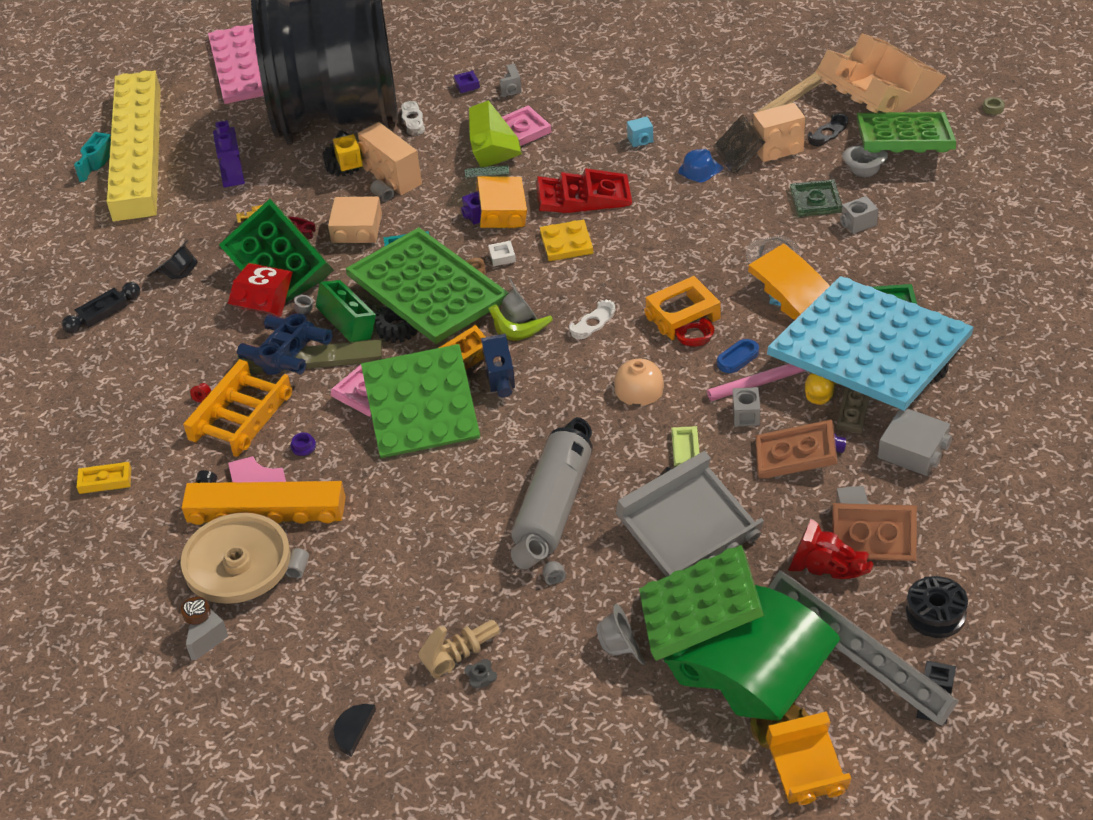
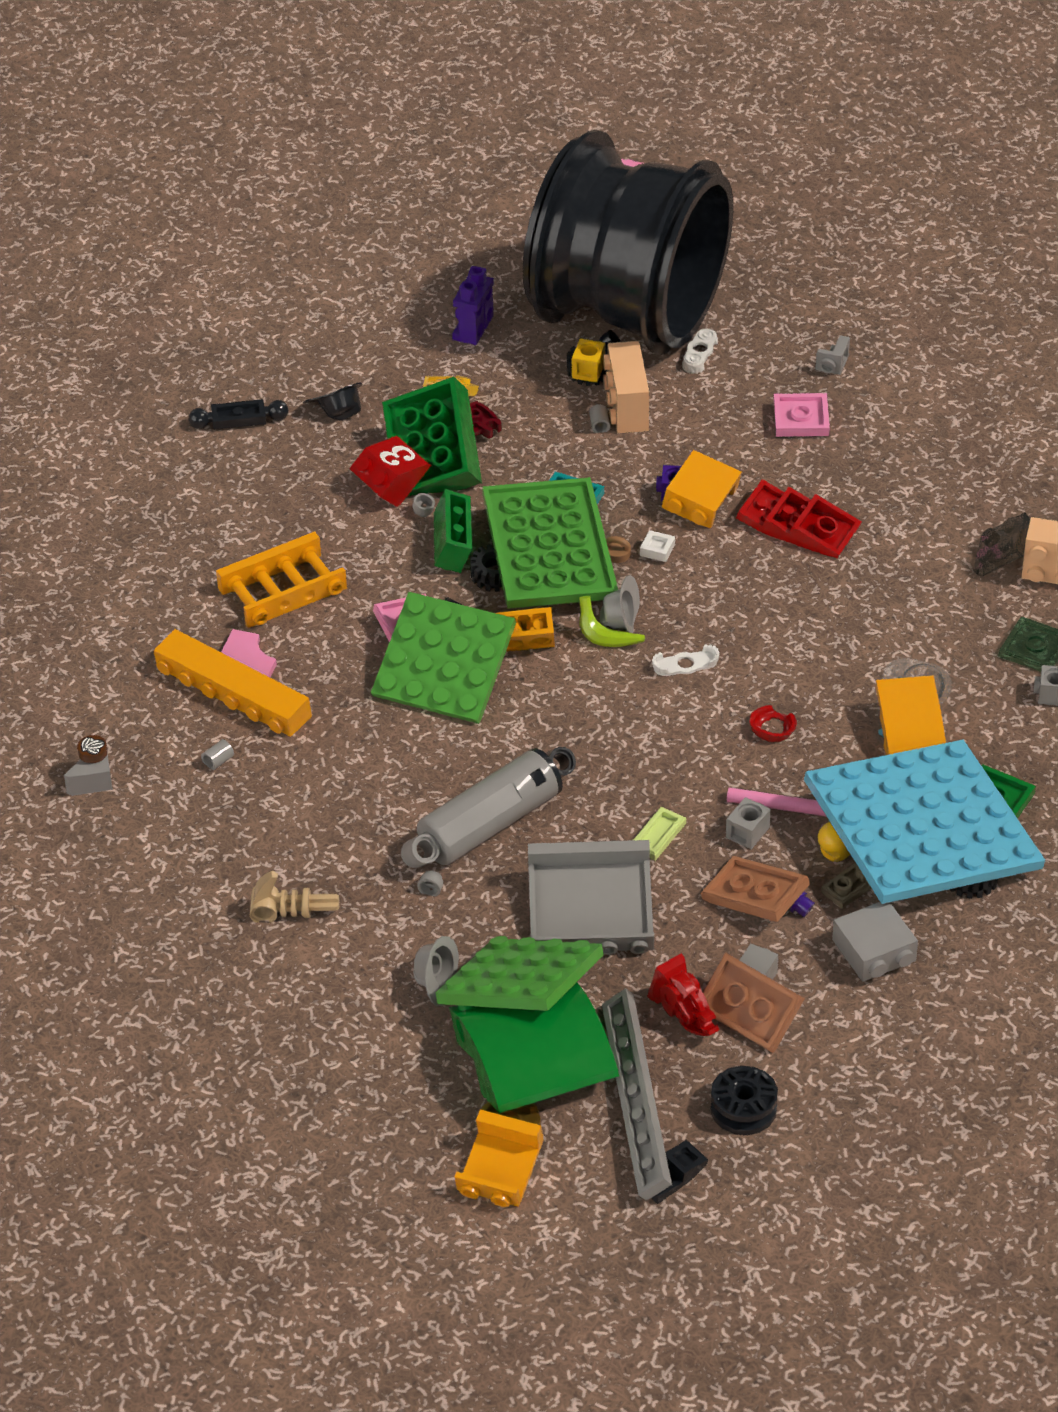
camera: 30 degrees right, 0 degrees up
(94, 155) = (352, 243): teal piece -> none
(104, 477) = (116, 587): yellow plate -> none
(134, 146) = (398, 250): light yellow brick -> none
(200, 392) = (260, 545): red piece -> none
(206, 477) = (201, 634): black hinge -> none
(235, 558) = (166, 720): tan dish -> none
(284, 344) = (368, 537): dark blue piece -> none
(303, 444) = (312, 645): dark purple plate -> none
(333, 355) = (390, 563): olive tile -> none
(351, 726) = (150, 922): black tile -> none
(355, 220) = (542, 438): light nougat brick -> none
(466, 81) = (789, 334): dark purple plate -> none
(480, 680) = (290, 942): dark grey plate -> none
(488, 171) = (715, 450): clear green tile -> none
(491, 136) = (754, 410): lime wedge -> none
(501, 373) = (546, 659): dark blue torso -> none
(566, 240) = (735, 564): yellow plate -> none
(639, 382) = (670, 746): light nougat cylinder -> none
(640, 131) = (916, 480): medium azure plate -> none
(699, 166) = (947, 549): blue piece -> none
(704, 304) = (759, 701): light orange panel -> none
(738, 356) = (791, 769): blue tile -> none

